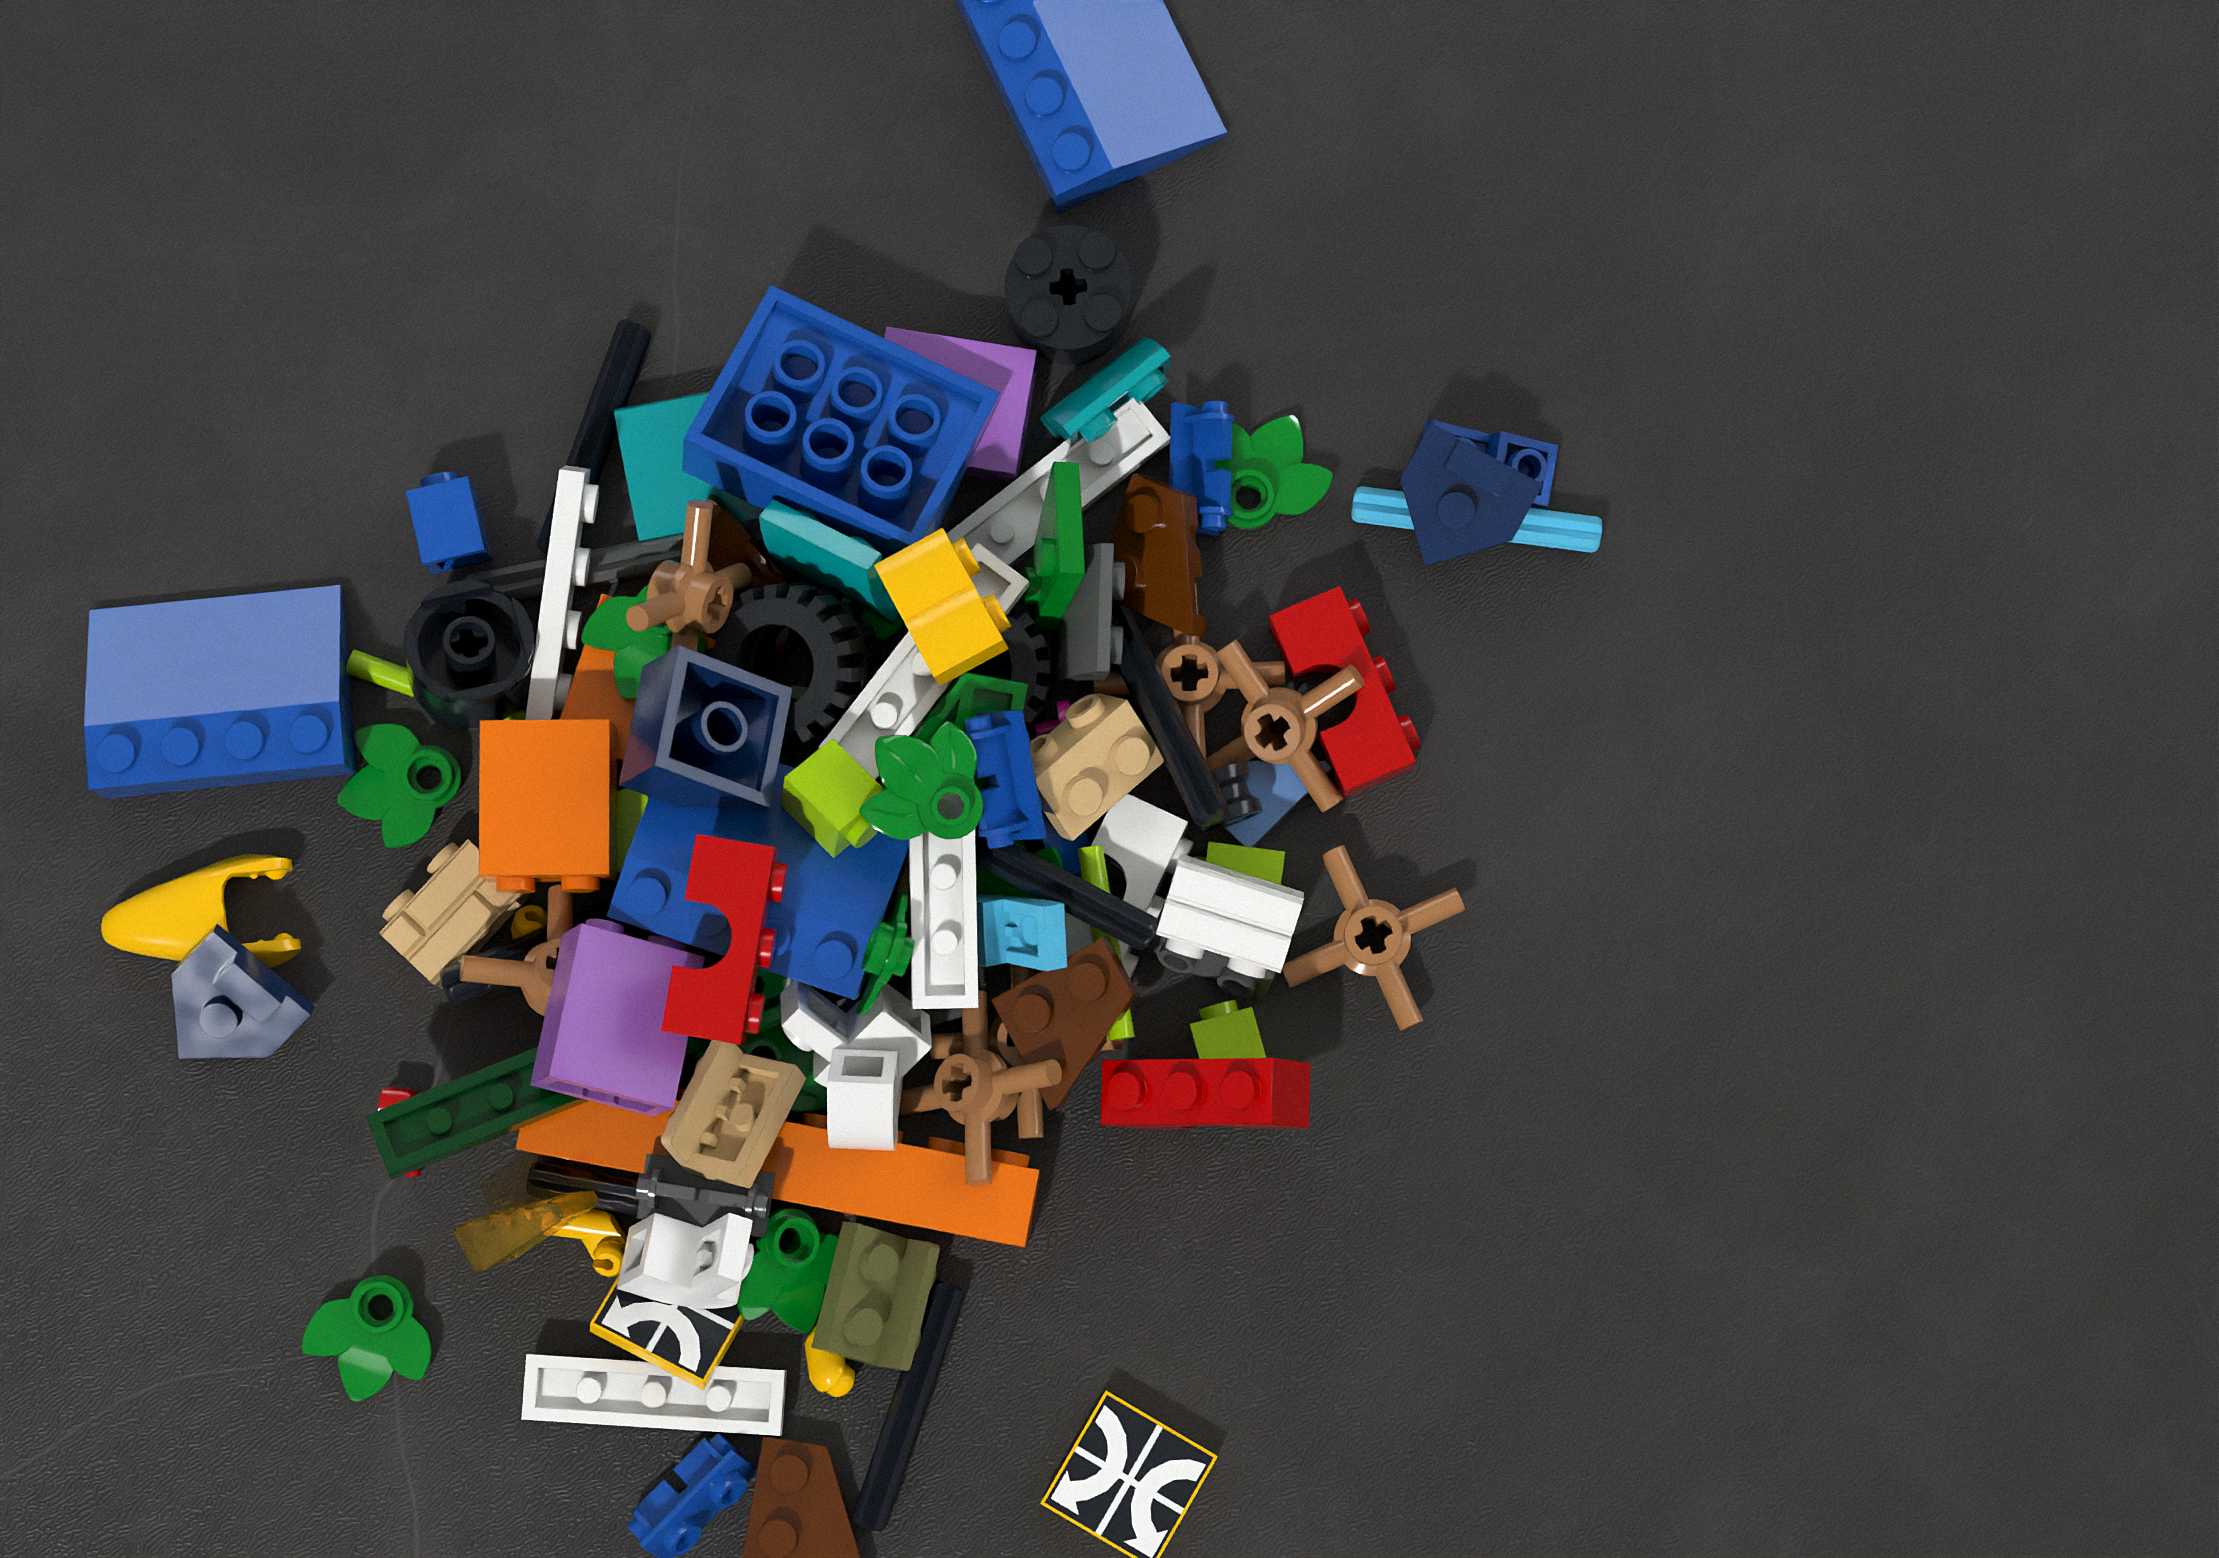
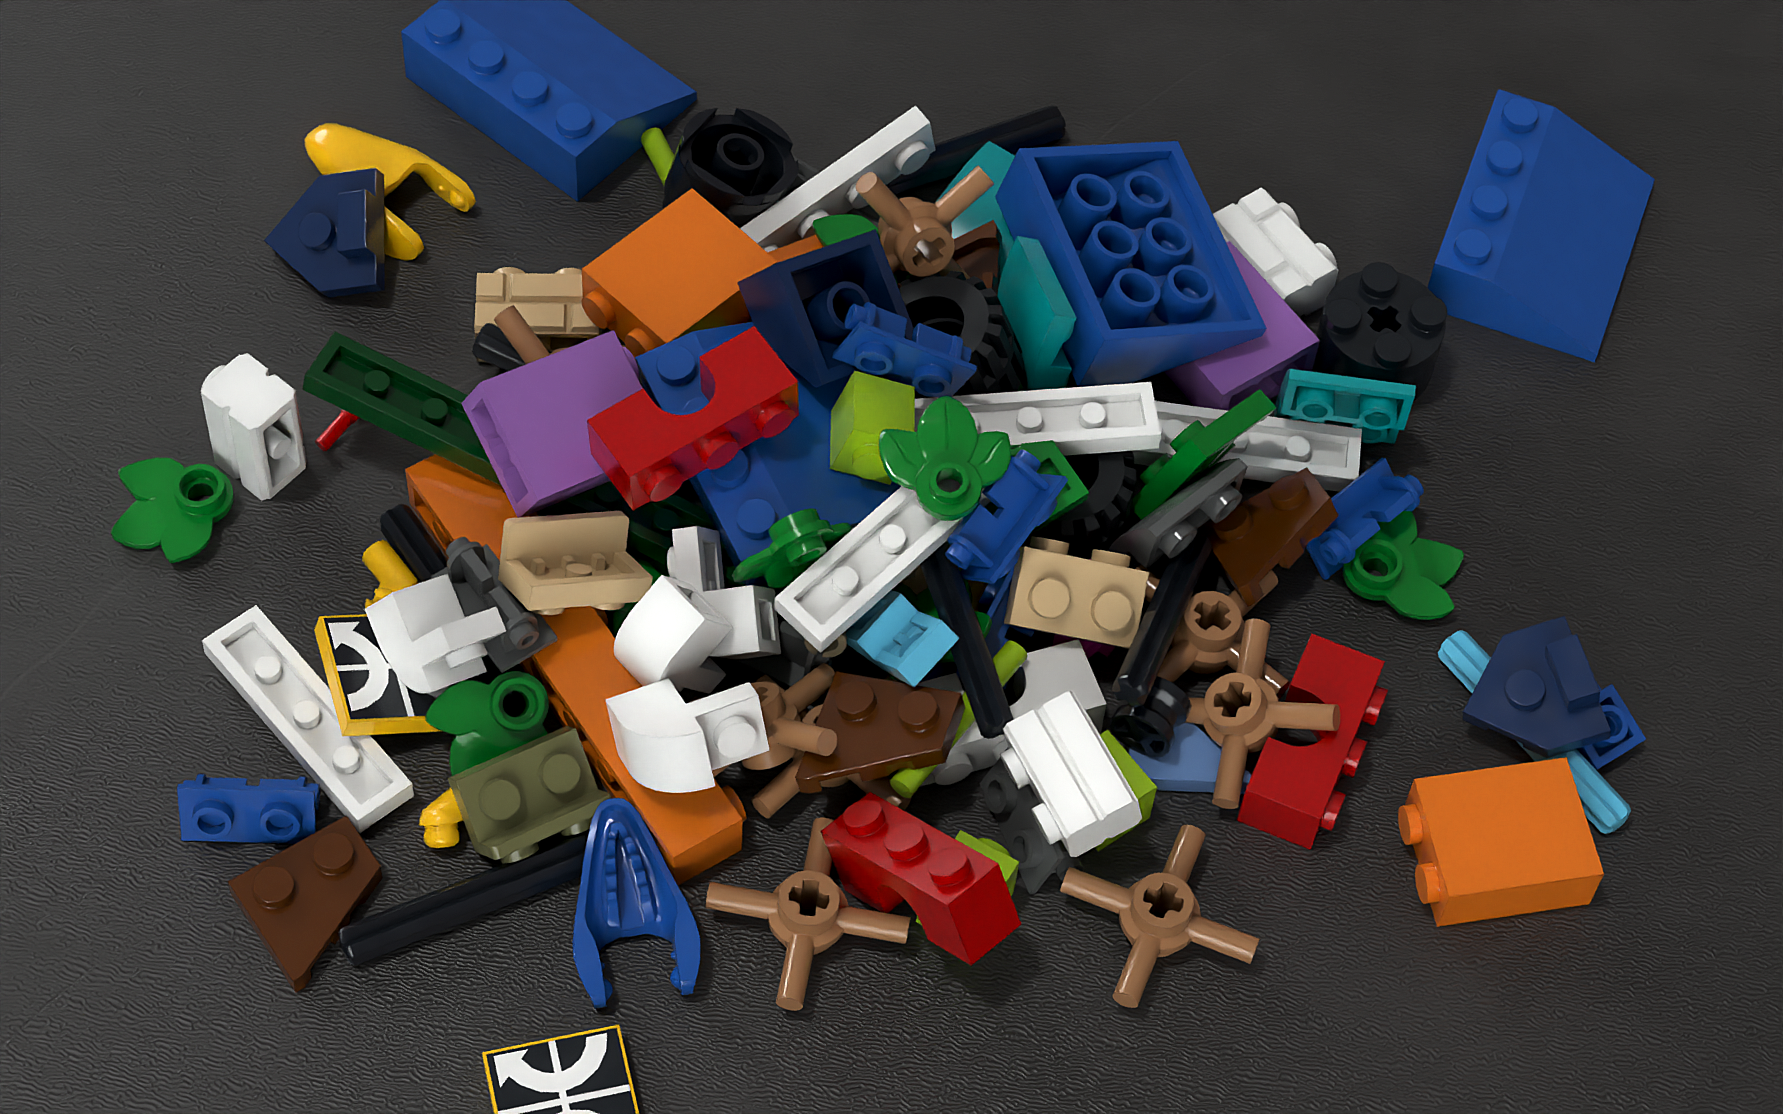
camera: 35 degrees right, 25 degrees down
(369, 1229) = (254, 426): none -> white brick
(391, 783) = (590, 226): green plate -> none
(448, 523) = (810, 108): blue brick -> none
(515, 1230) = (350, 521): clear yellow slope -> none
(783, 737) = (930, 362): none -> blue hinge
(919, 292) = (1279, 250): none -> white brick
(942, 606) = (1083, 382): yellow brick -> none
(958, 1181) = (678, 743): none -> white brick
(1008, 1295) = (629, 894): none -> blue animal
(1139, 1207) = (804, 934): none -> medium nougat bar
(1539, 641) = (1500, 842): none -> orange brick

